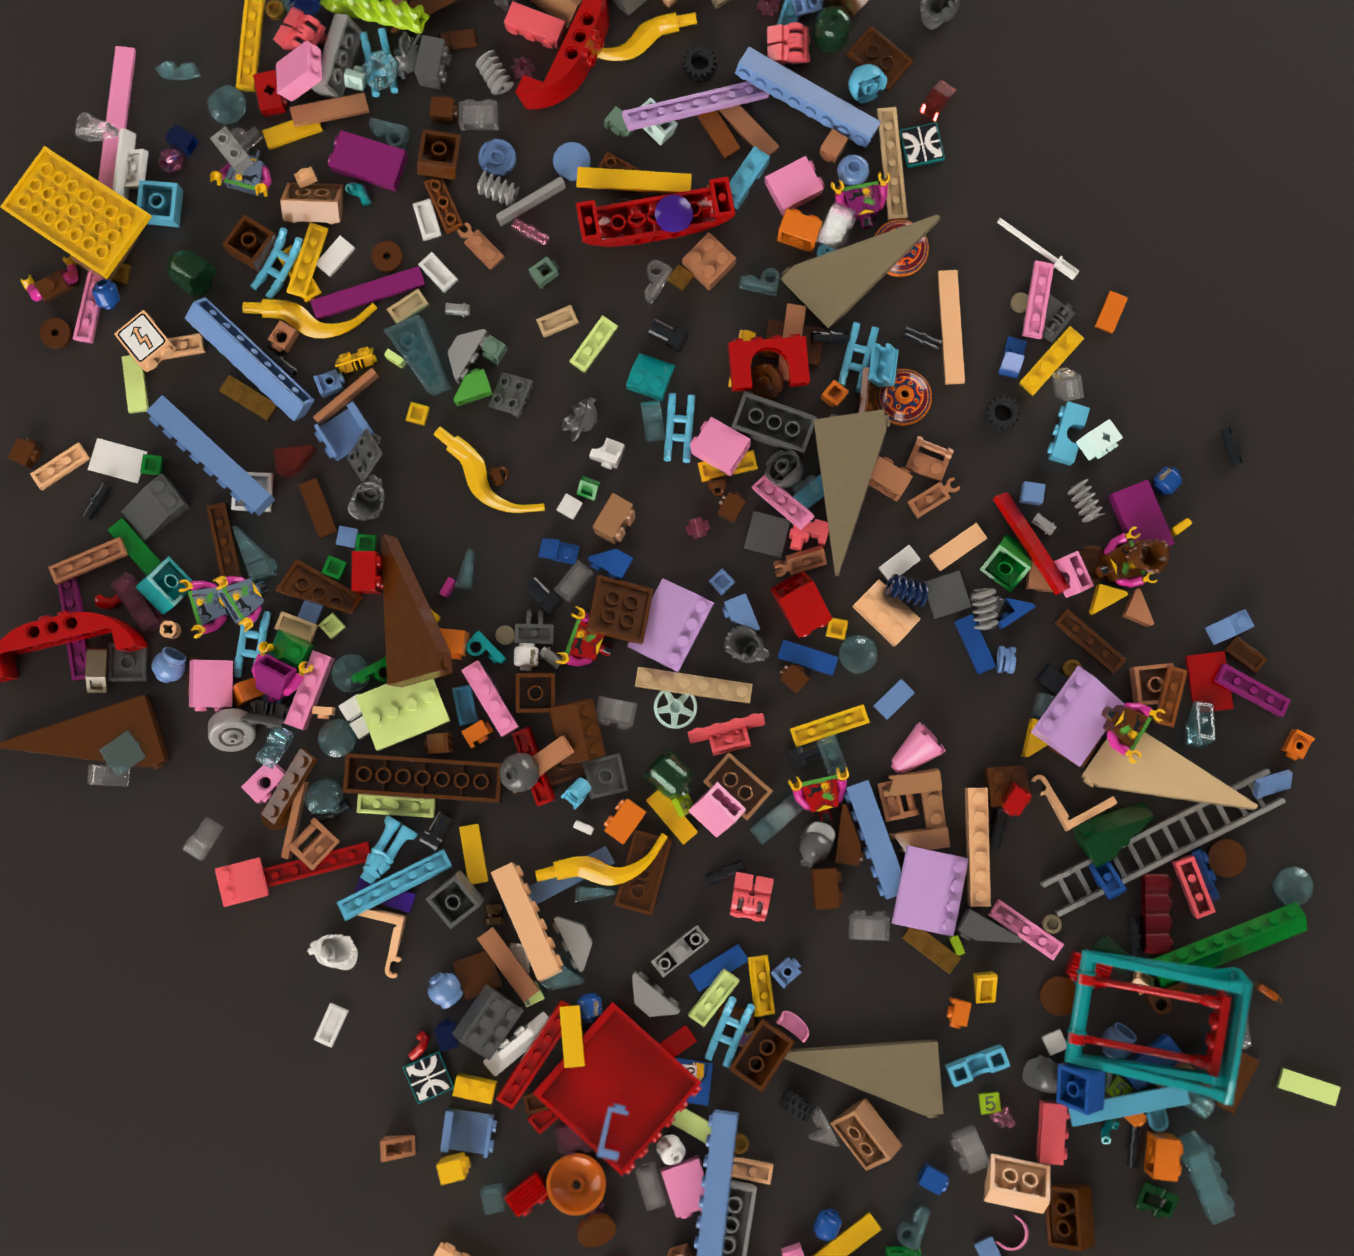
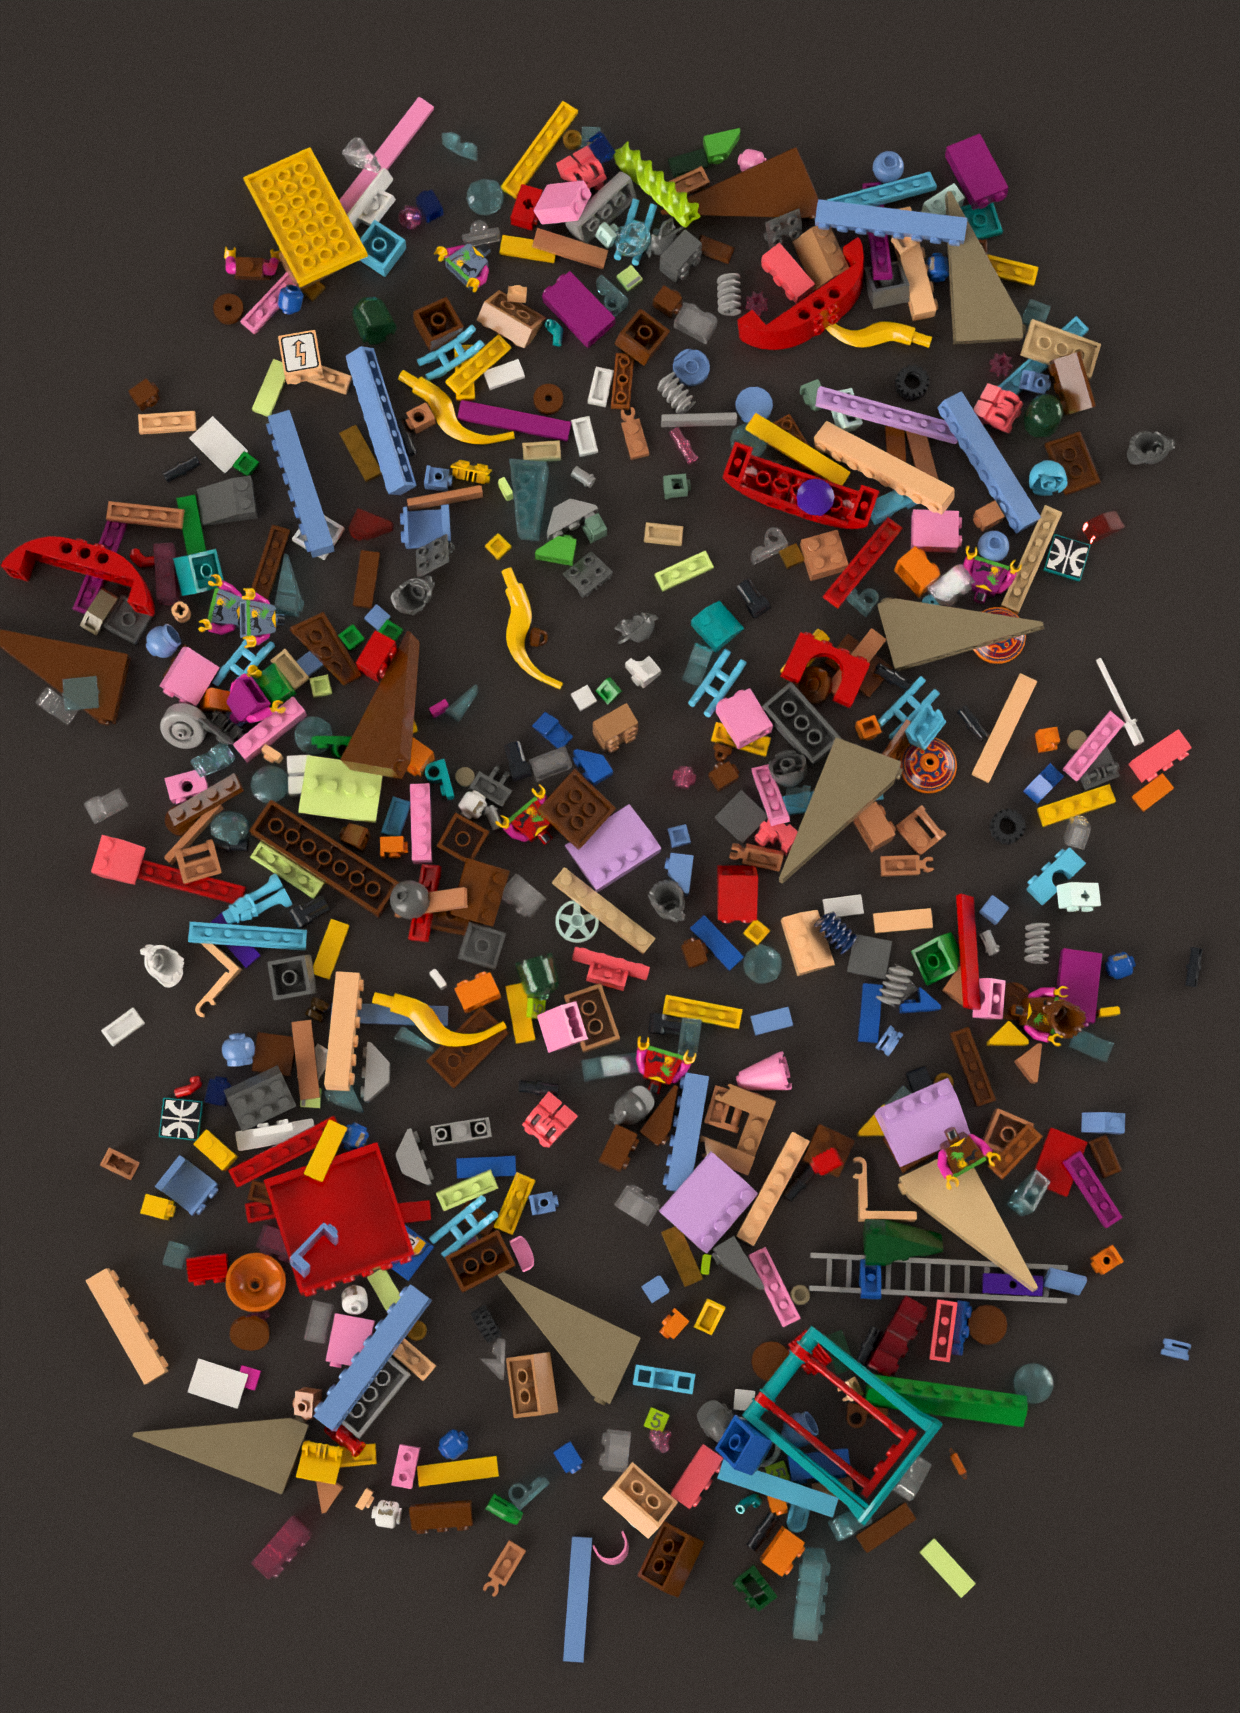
camera: 20 degrees right, 5 degrees down
(231, 150) = (467, 237): light grey brick -> none
(397, 107) = (629, 278): none -> yellowish green tile
(577, 195) = (744, 437): none -> clear light blue dish
(577, 792) = (449, 945): medium azure piece -> none
(719, 153) = (884, 468): none -> light nougat brick
(747, 249) = (862, 562): none -> red plate
(925, 990) = (655, 1289): none -> medium blue piece
(995, 316) = (1047, 739): none -> orange brick
(1101, 276) = (1160, 756): none -> coral brick
(1183, 564) = (1092, 1045): none -> clear light blue slope
(1219, 817) = (999, 1284): none -> dark purple tile

